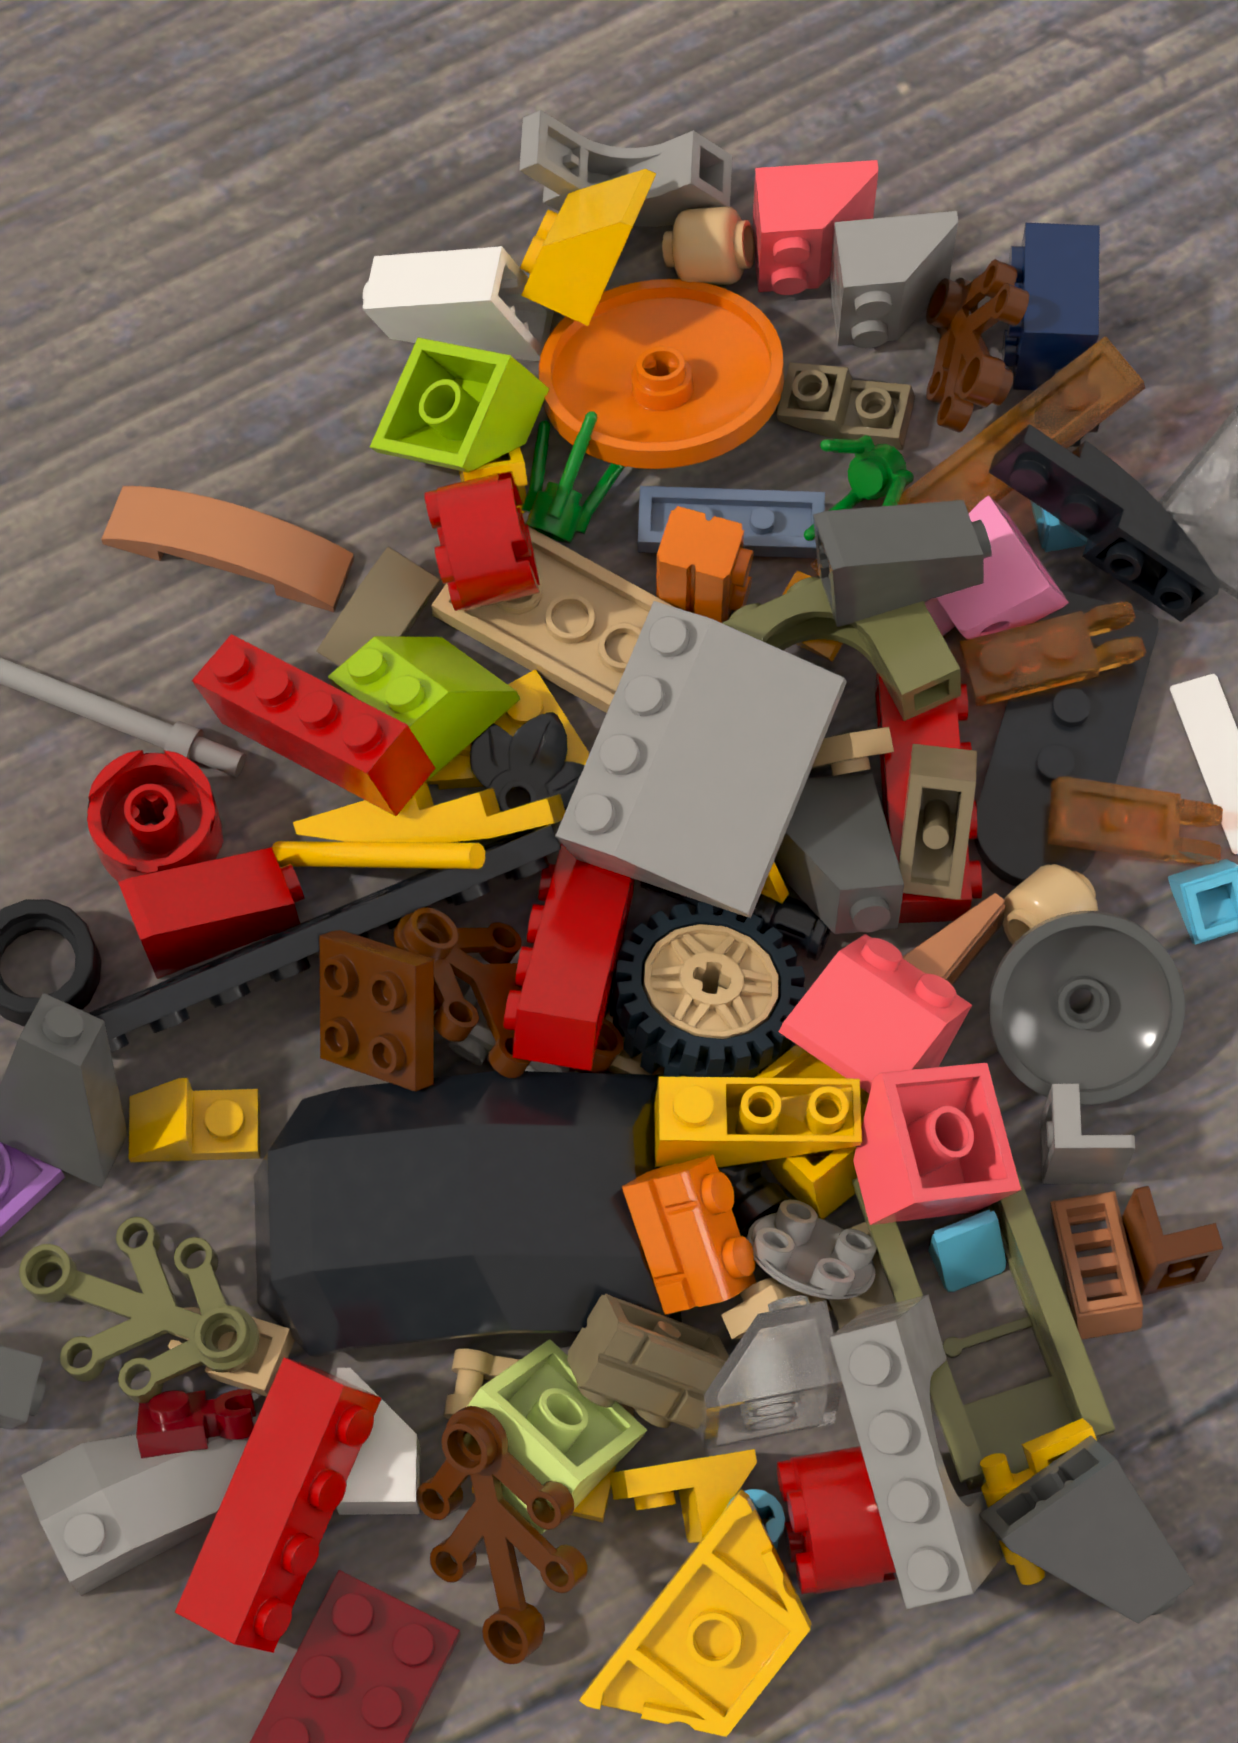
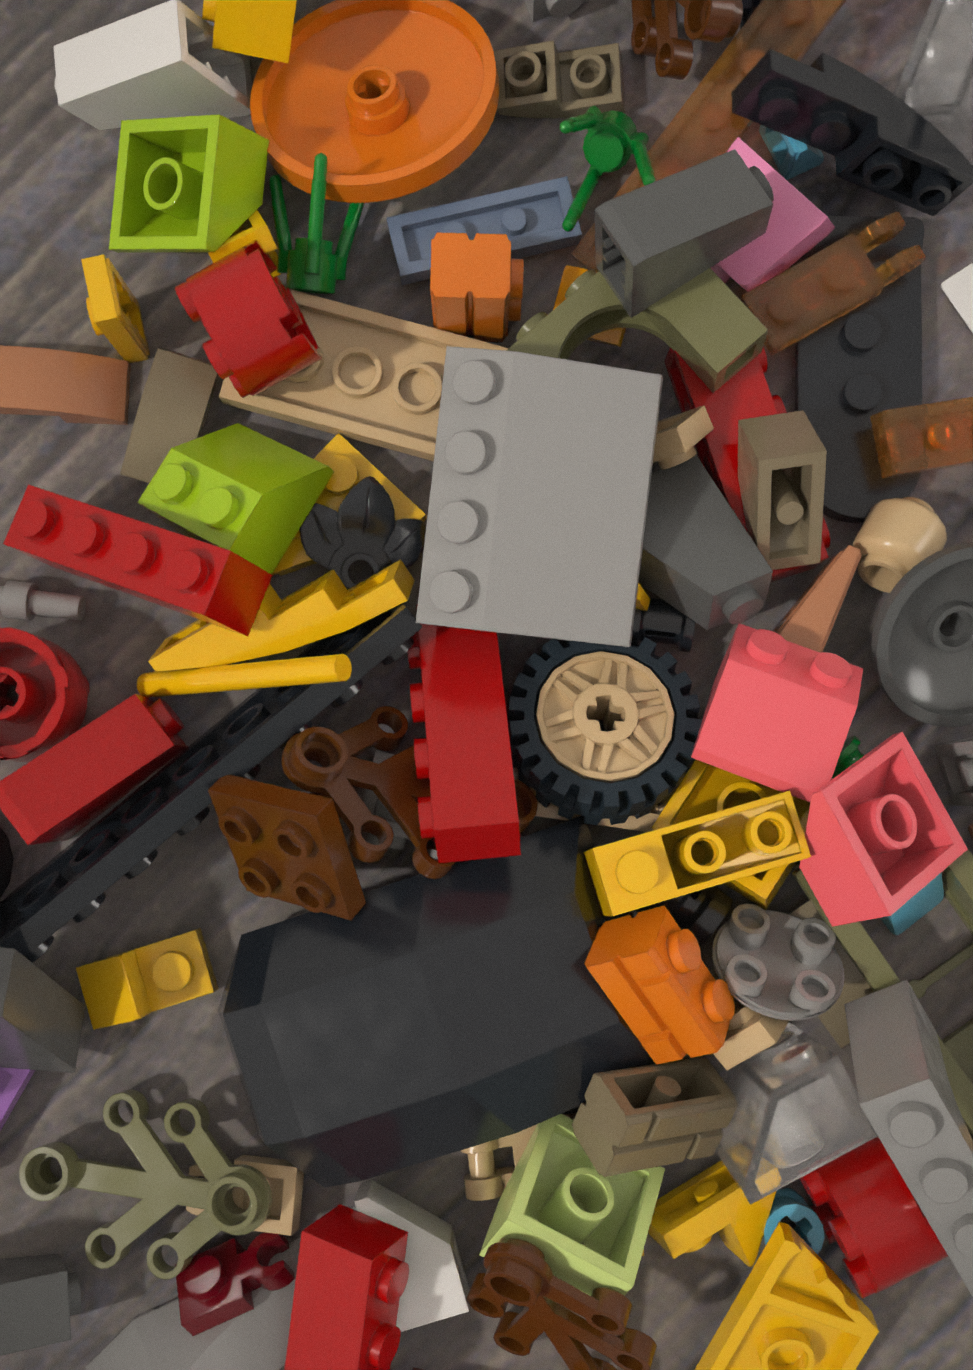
camera: 20 degrees left, 15 degrees up
(359, 502) = (114, 309): none -> yellow plate

